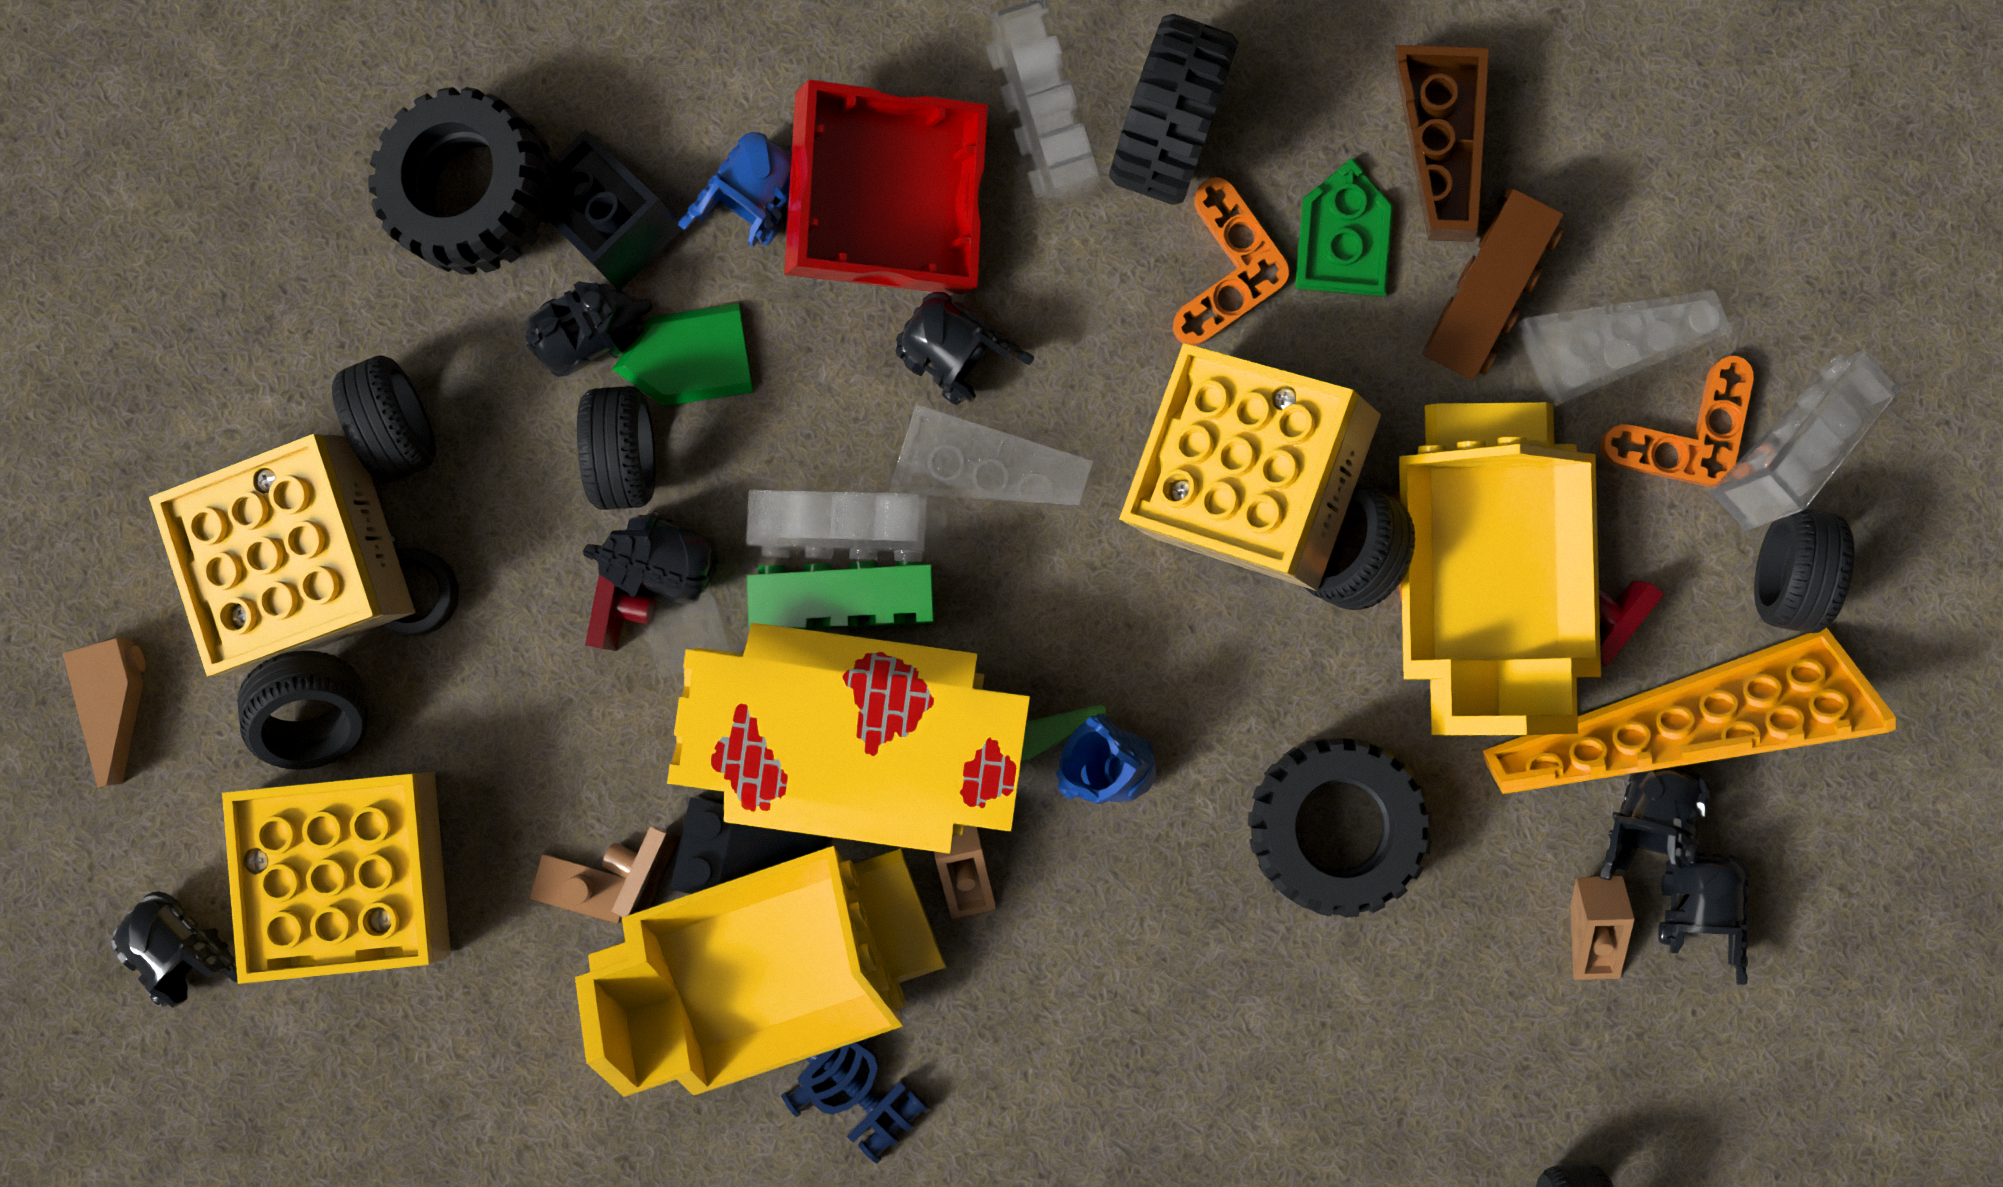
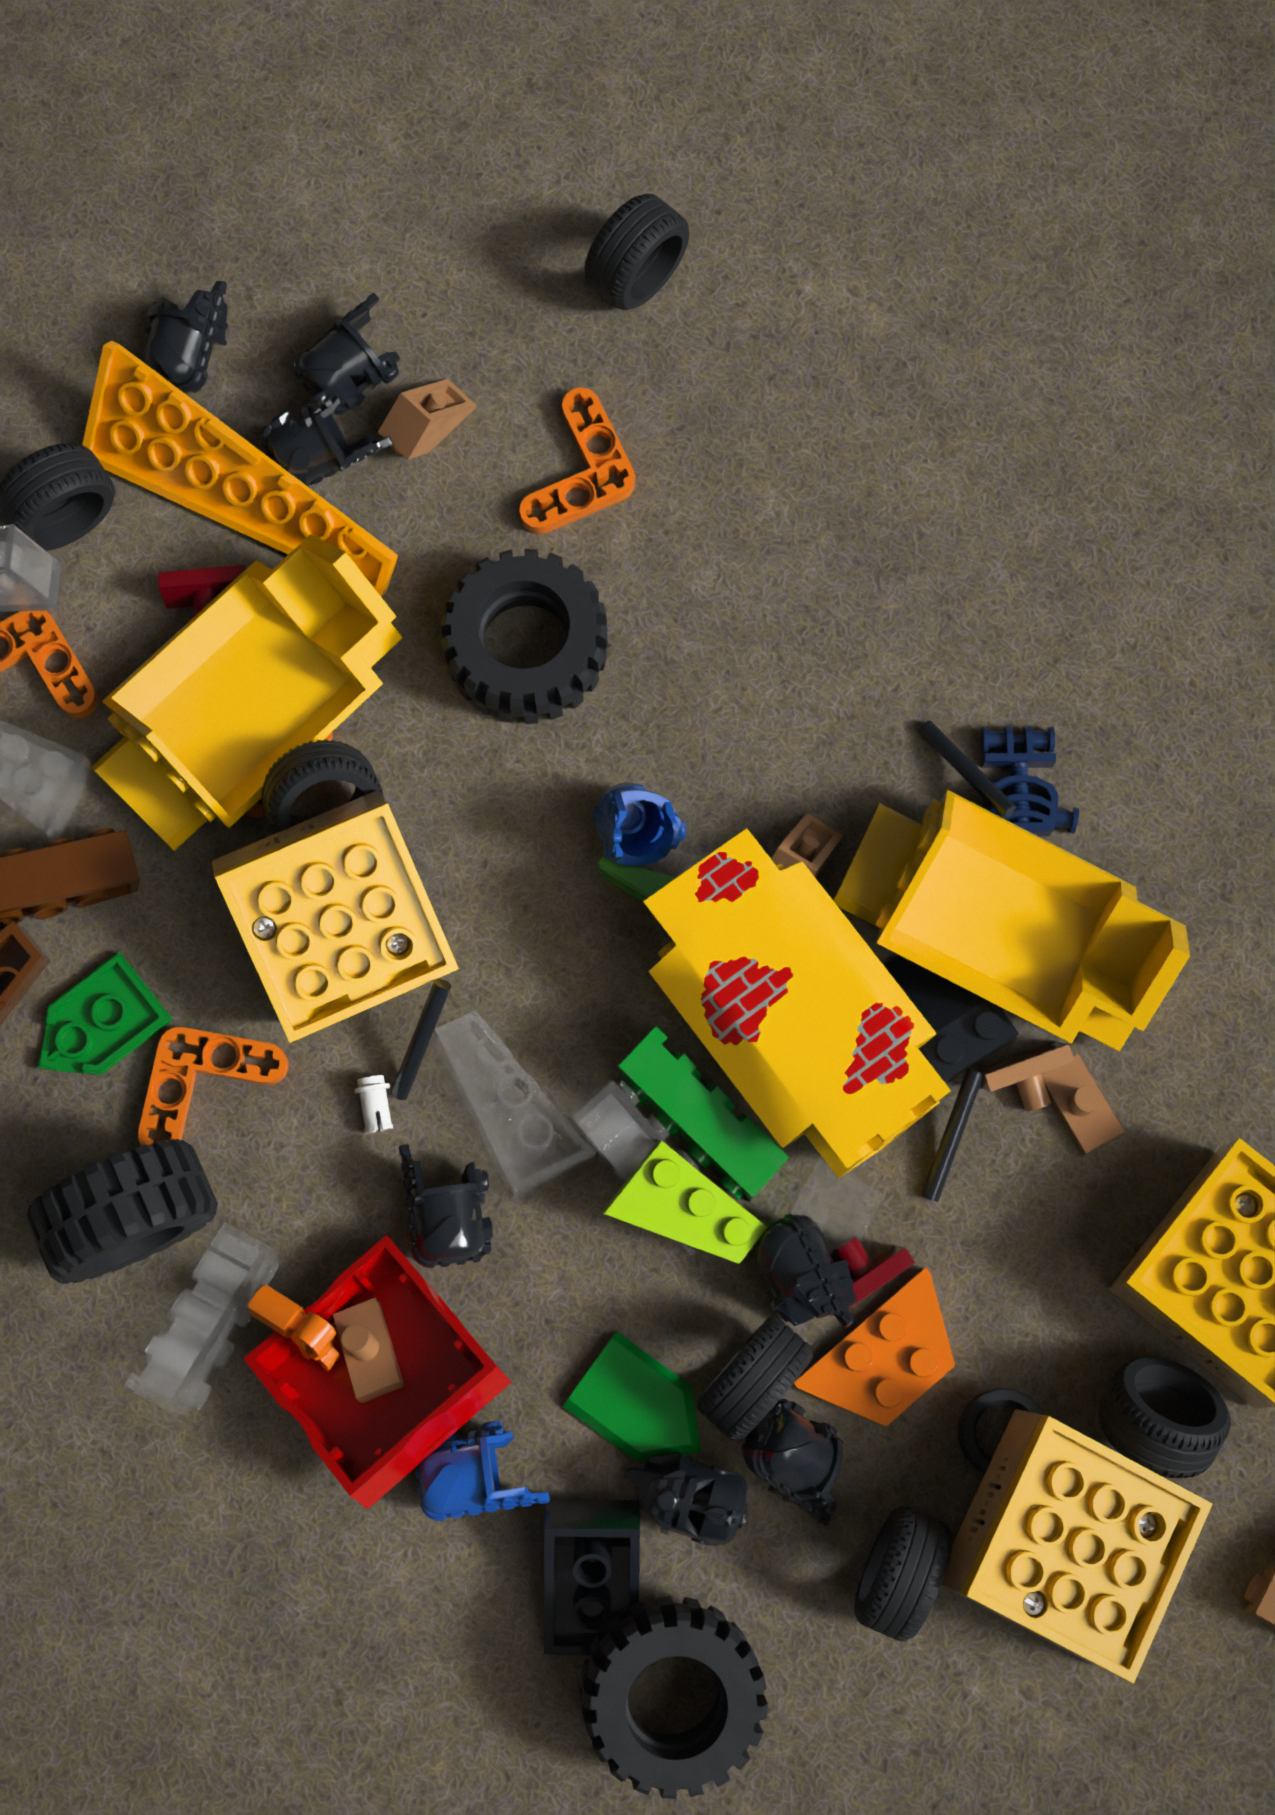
camera: 135 degrees left, 10 degrees down
(535, 425) = (796, 1458): none -> black helmet
(542, 565) = (887, 1357): none -> orange wing
(650, 769) = (952, 1134): none -> black bar
(786, 516) = (684, 1205): none -> lime wing
(906, 1061) = (968, 770): none -> black bar
(908, 199) = (368, 1350): none -> medium nougat tile
(981, 158) = (308, 1332): none -> orange bar
(1089, 374) = (373, 1102): none -> white pin
(1098, 448) = (420, 1039): none -> black bar
(1429, 1025) = (598, 467): none -> orange beam
(1849, 796) = (184, 340): none -> black helmet

